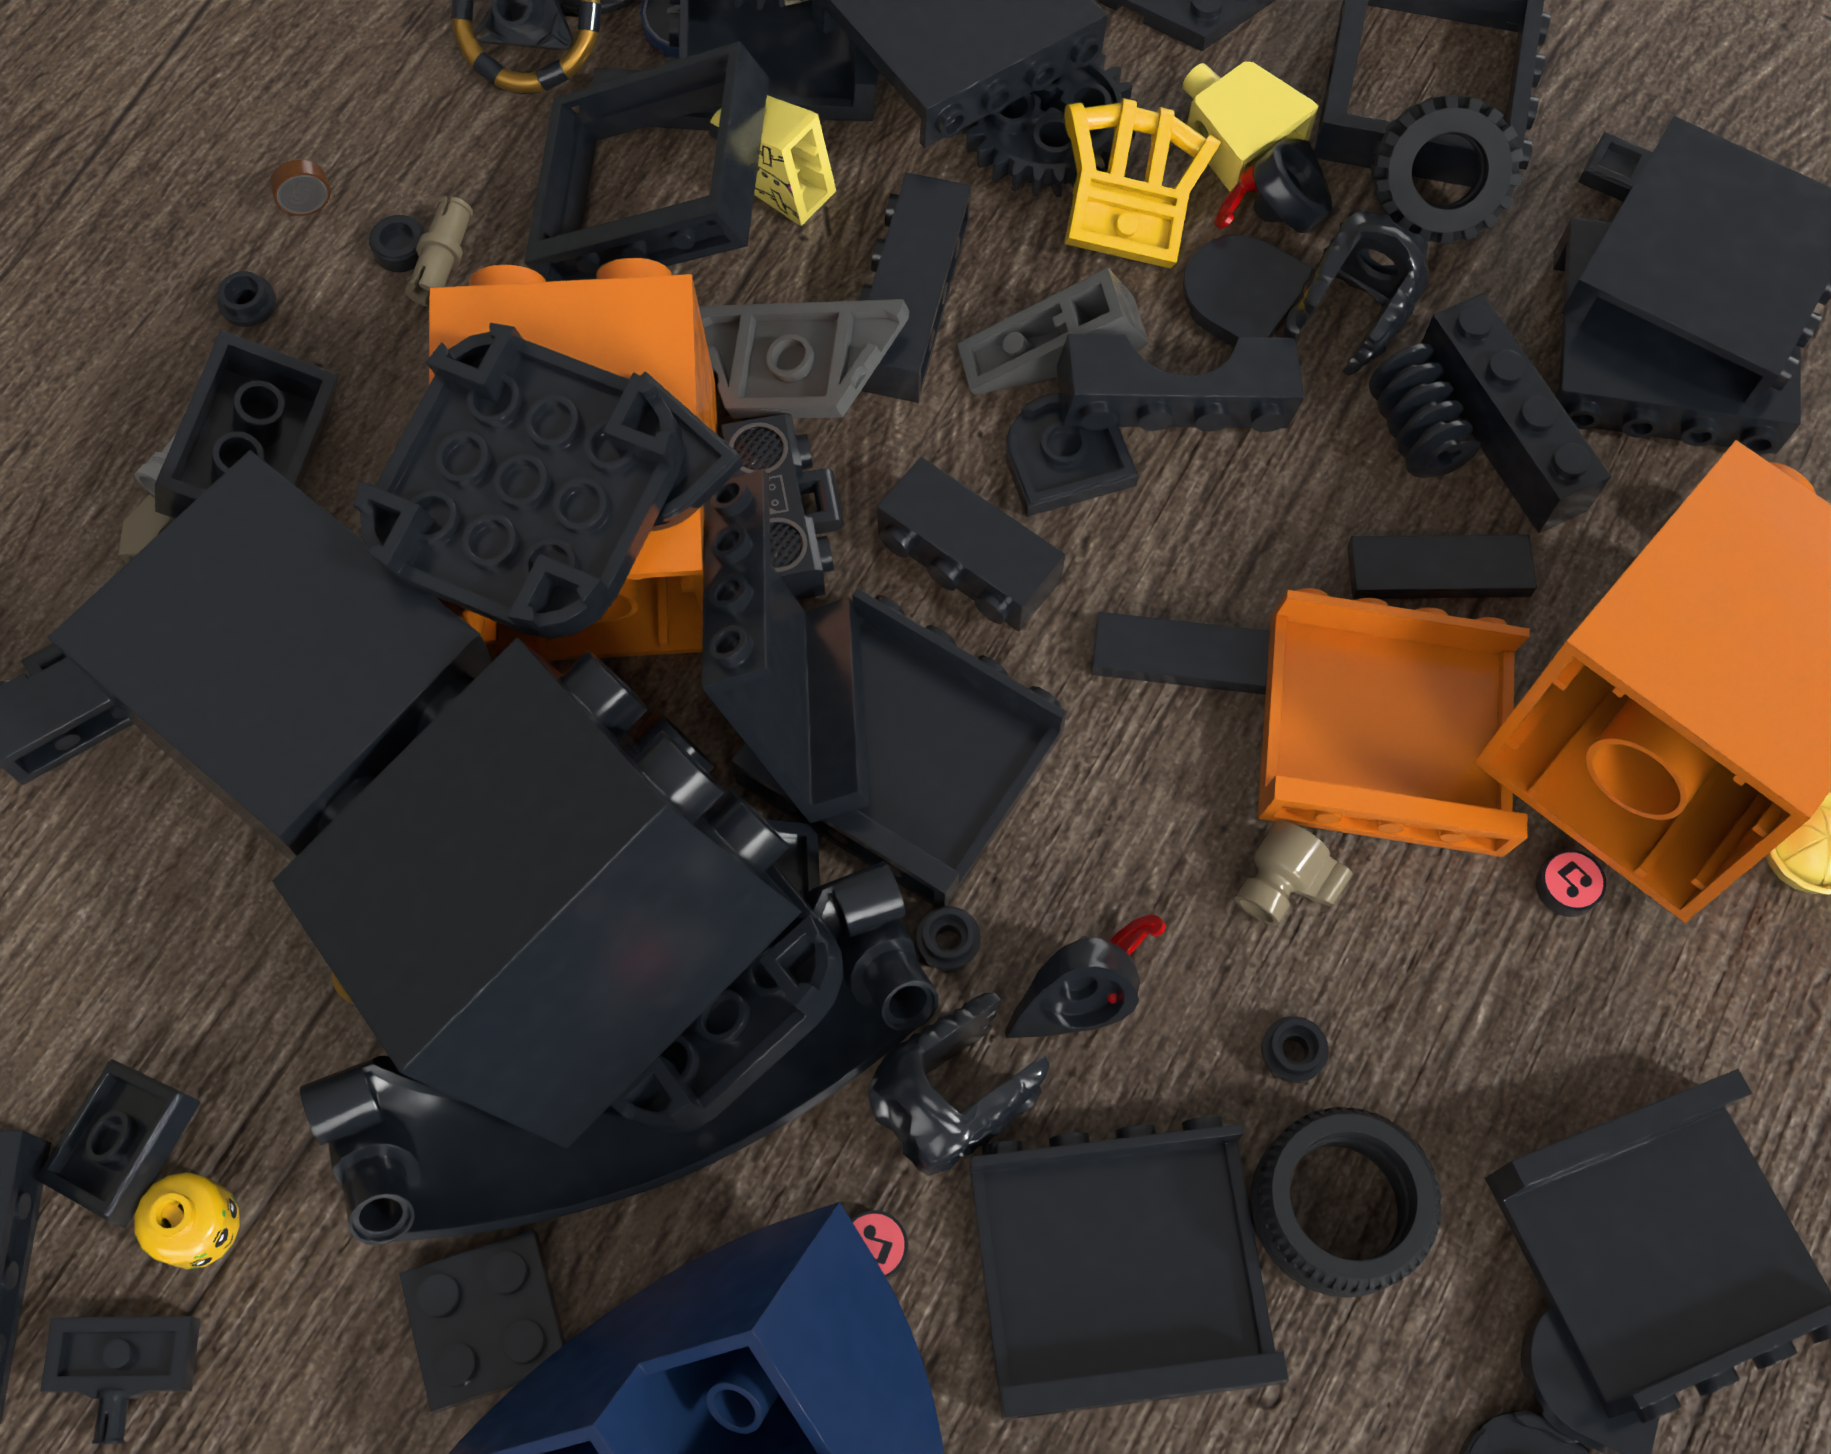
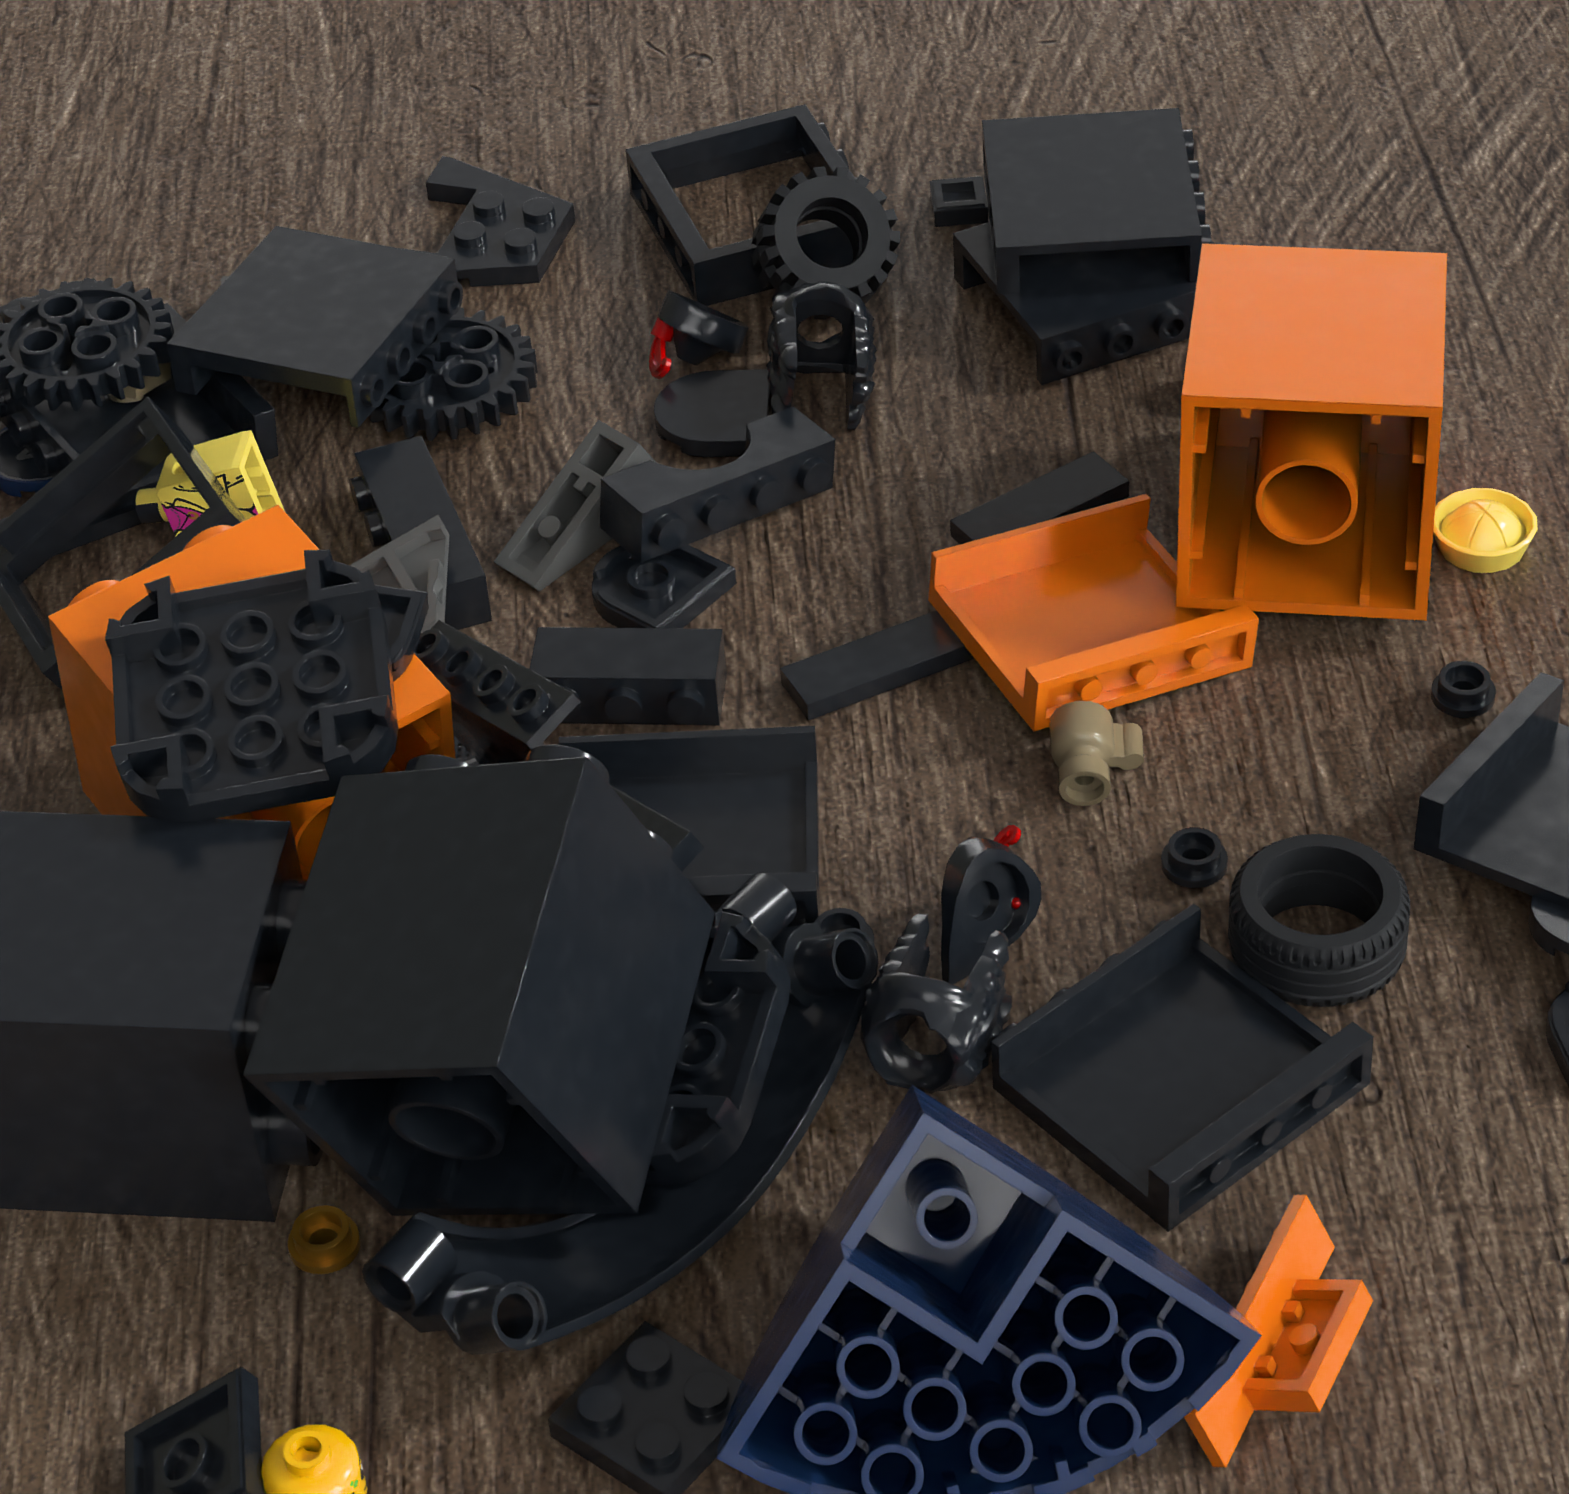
camera: 30 degrees left, 25 degrees down
(1123, 213) = (565, 402): yellow plate -> none
(1247, 113) = (617, 299): light yellow torso -> none
(1421, 414) = (940, 413): black piece -> none
(1515, 415) = (1012, 380): black brick -> none
(1570, 883) = (1318, 649): tile -> none
(1675, 1006) = (1463, 690): none -> black plate

